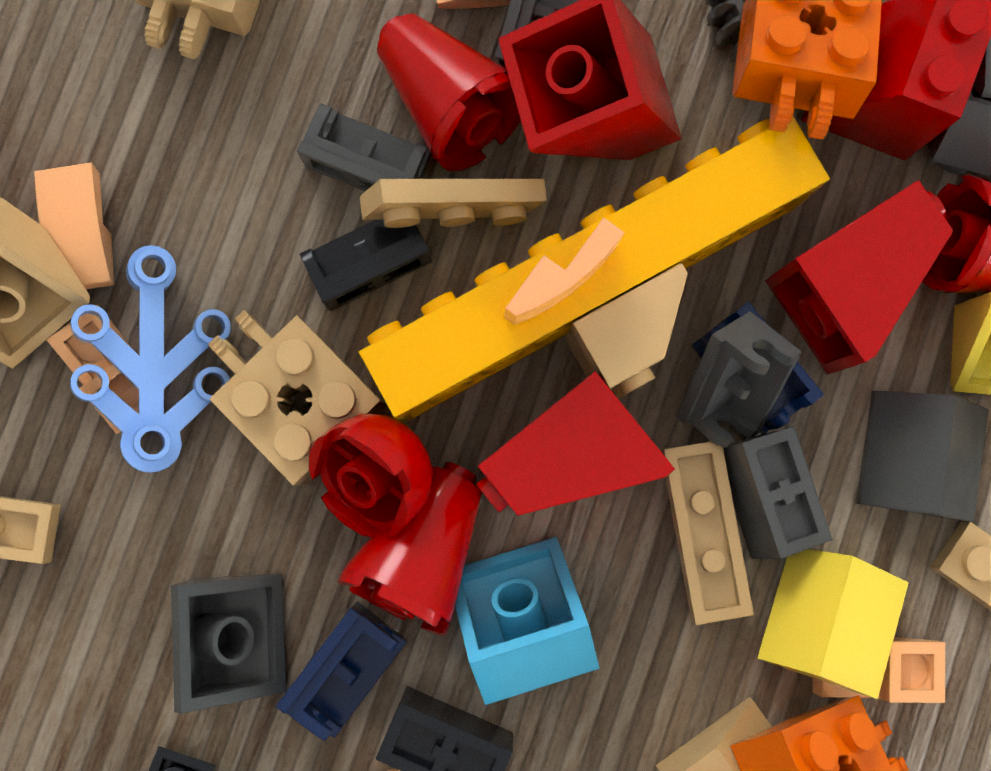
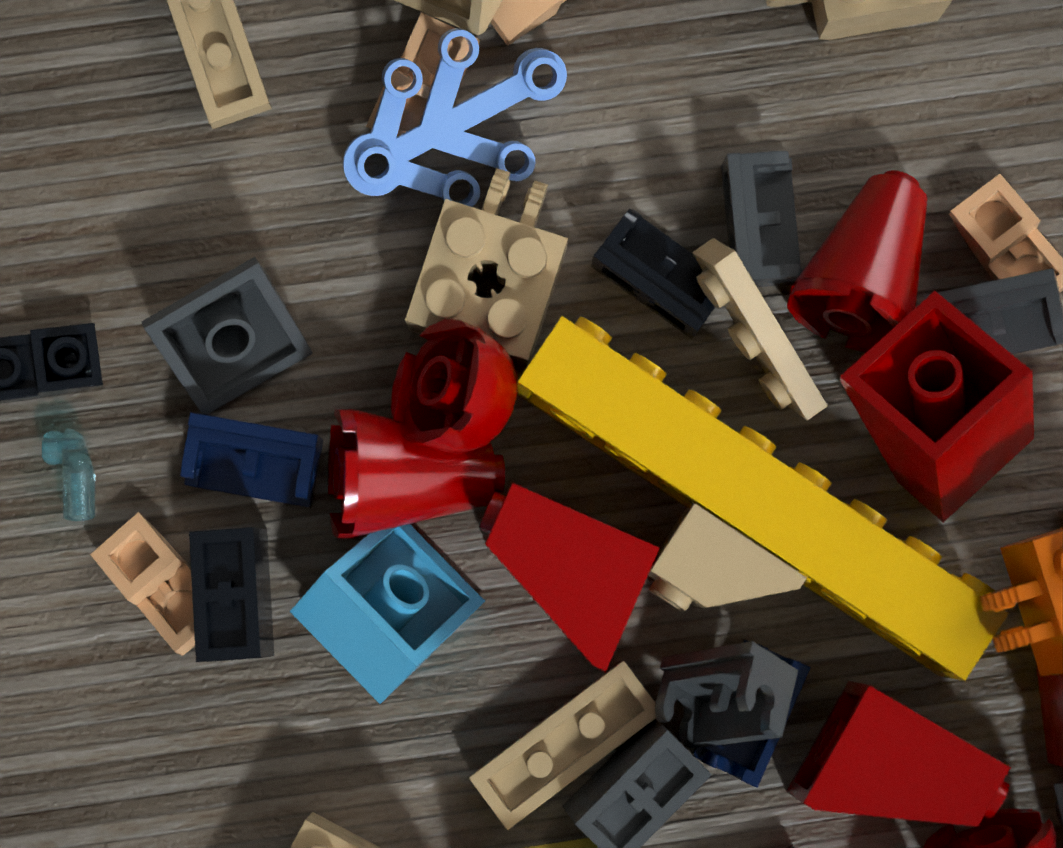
camera: 65 degrees right, 0 degrees up
(551, 283) = (715, 461): light nougat slope -> none

